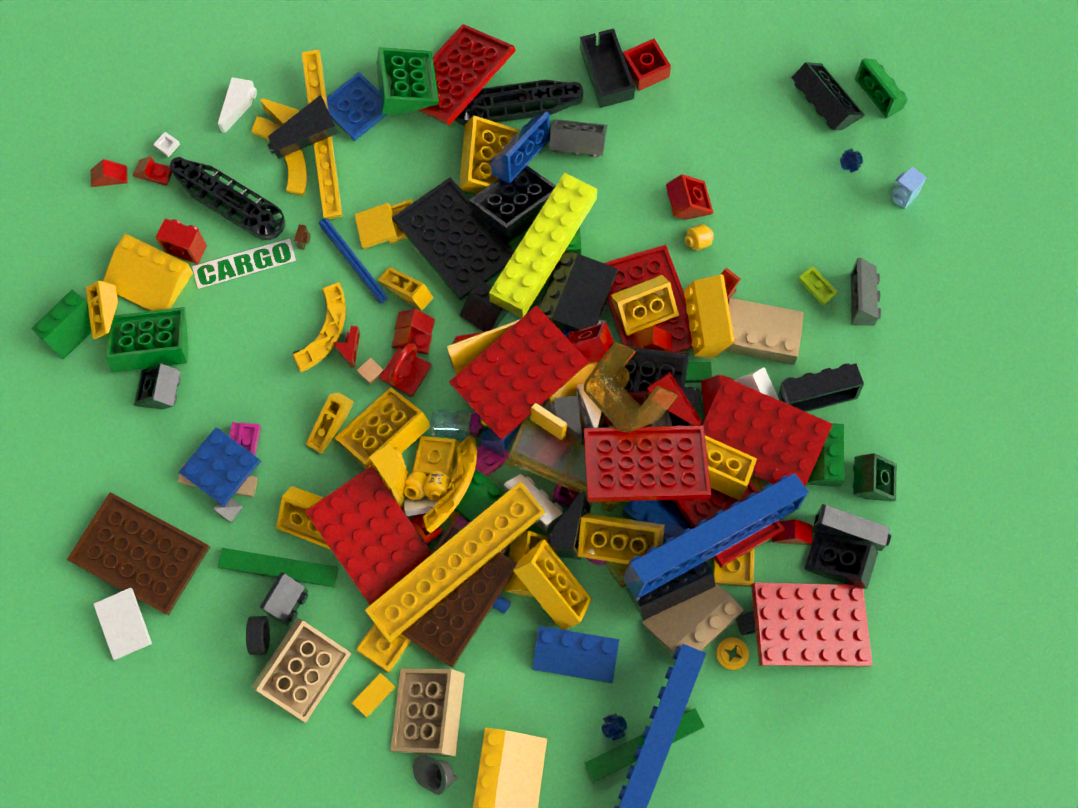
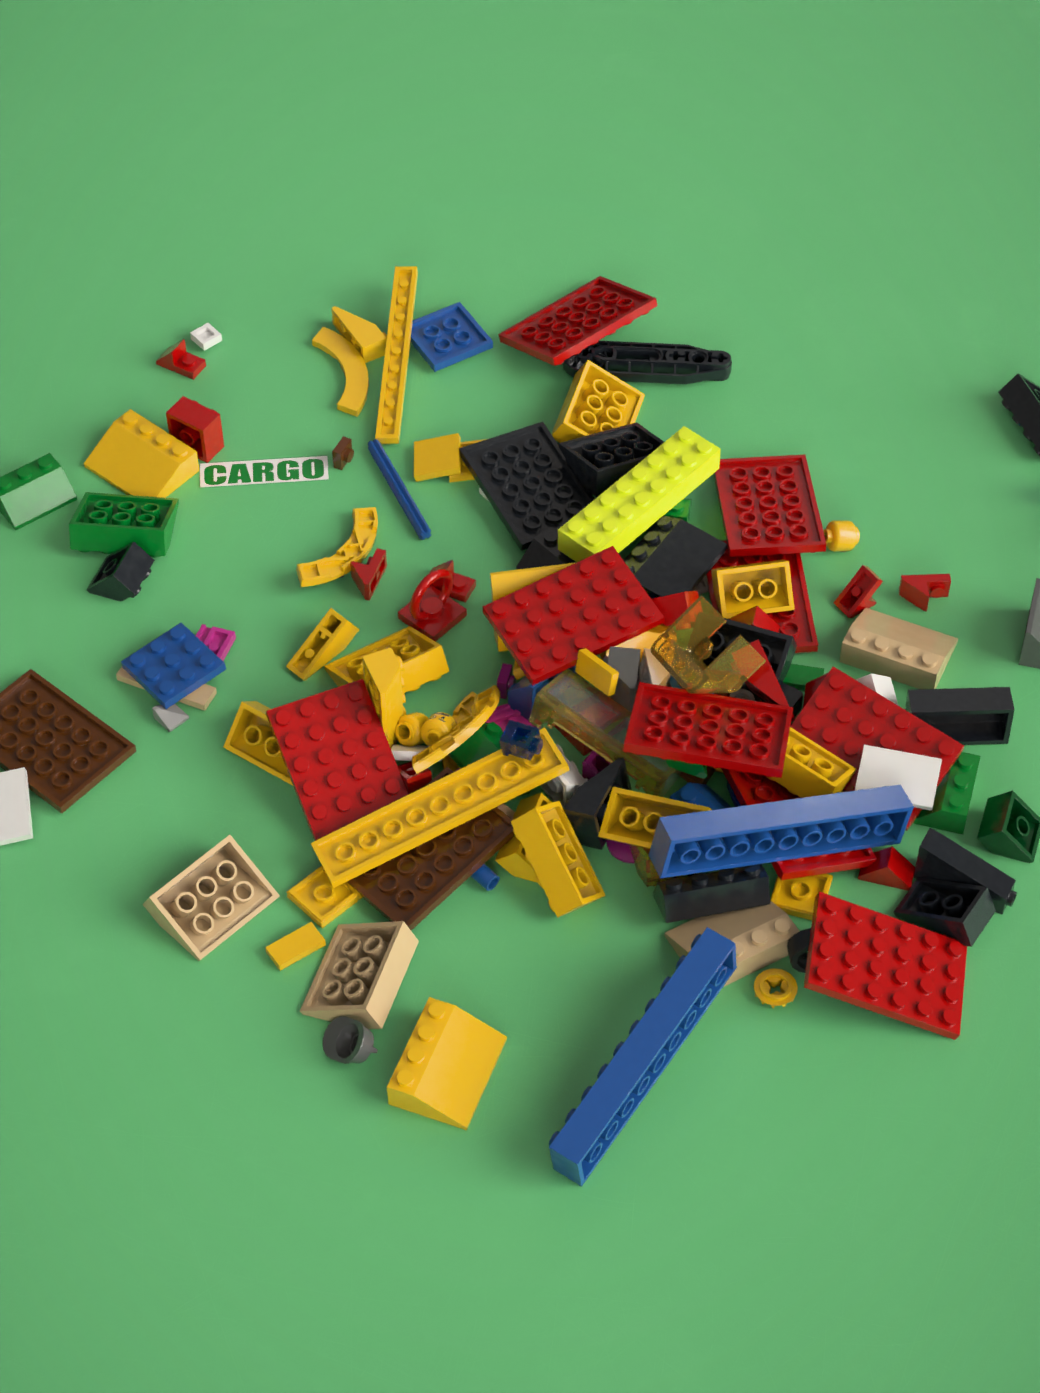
camera: 10 degrees right, 20 degrees down
(102, 305) = (80, 475): yellow slope -> none
(108, 173) = (127, 353): red slope -> none
(237, 101) = (303, 308): white slope -> none
(257, 635) = (168, 847): black tyre -> none
(260, 220) = (271, 402): black beam -> none
(272, 566) = (214, 788): green tile -> none
(284, 599) = (211, 814): slope -> none
(303, 129) = (375, 341): black slope -> none
(370, 371) = (388, 604): light nougat tile -> none
(406, 80) = (514, 315): green slope -> none
(407, 288) = (458, 526): yellow slope -> none
(418, 320) = (464, 561): red slope -> none
(435, 455) = (447, 698): yellow tile -> none
(451, 424) = (471, 673): clear light blue slope -> none
(500, 497) = (521, 740): none -> brick
(522, 148) = (639, 403): blue slope -> none
(575, 654) = (569, 947): blue slope -> none
(578, 137) = (712, 411): dark grey slope -> none
(607, 68) = (767, 345): black piece -> none
(614, 726) = (598, 1035): gear -> none
(624, 754) = (576, 1078): green tile -> none
(640, 222) = (769, 506): none -> red plate
(647, 64) = (817, 349): red brick -> none
(688, 197) = (838, 493): red slope -> none
(709, 316) = (831, 613): yellow slope -> none
(767, 274) = (920, 588): none -> red slope
(789, 457) = (891, 767): none -> white tile
(818, 285) = (982, 612): lime plate -> none

